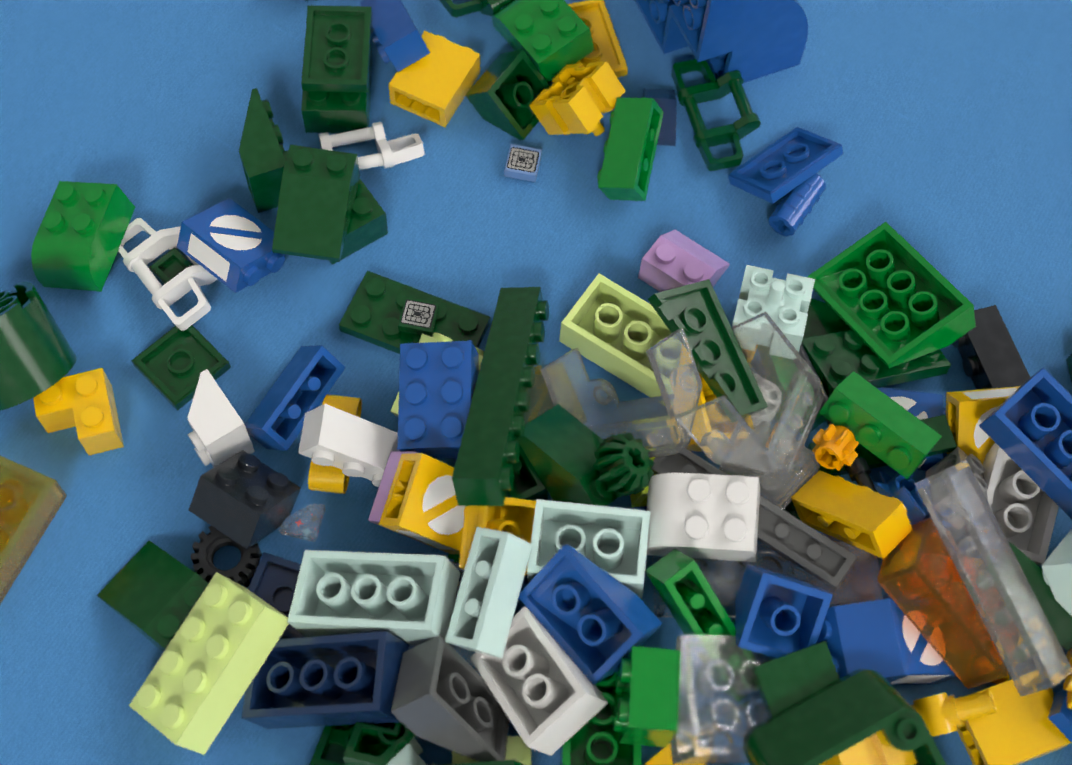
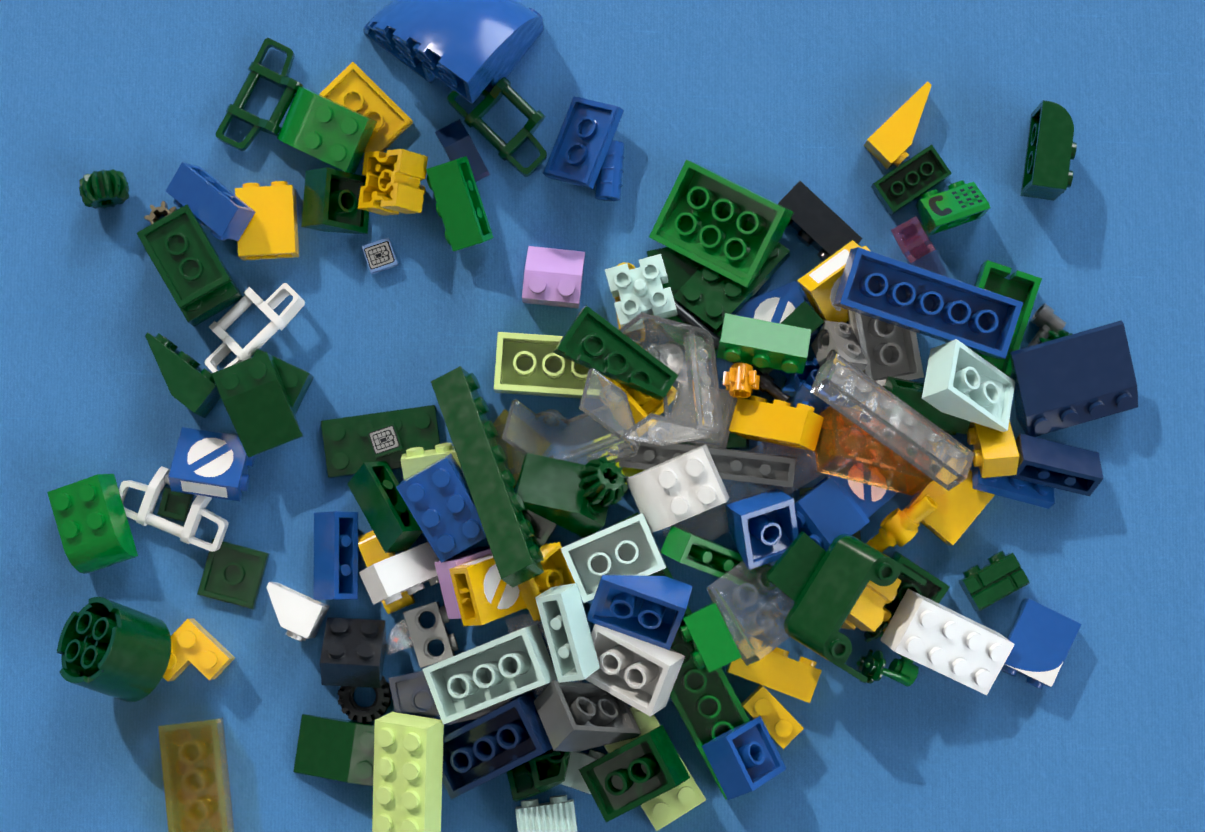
camera: 30 degrees left, 20 degrees up
(330, 532) = (423, 636): none -> light grey brick
(375, 373) = (384, 507): none -> dark green brick

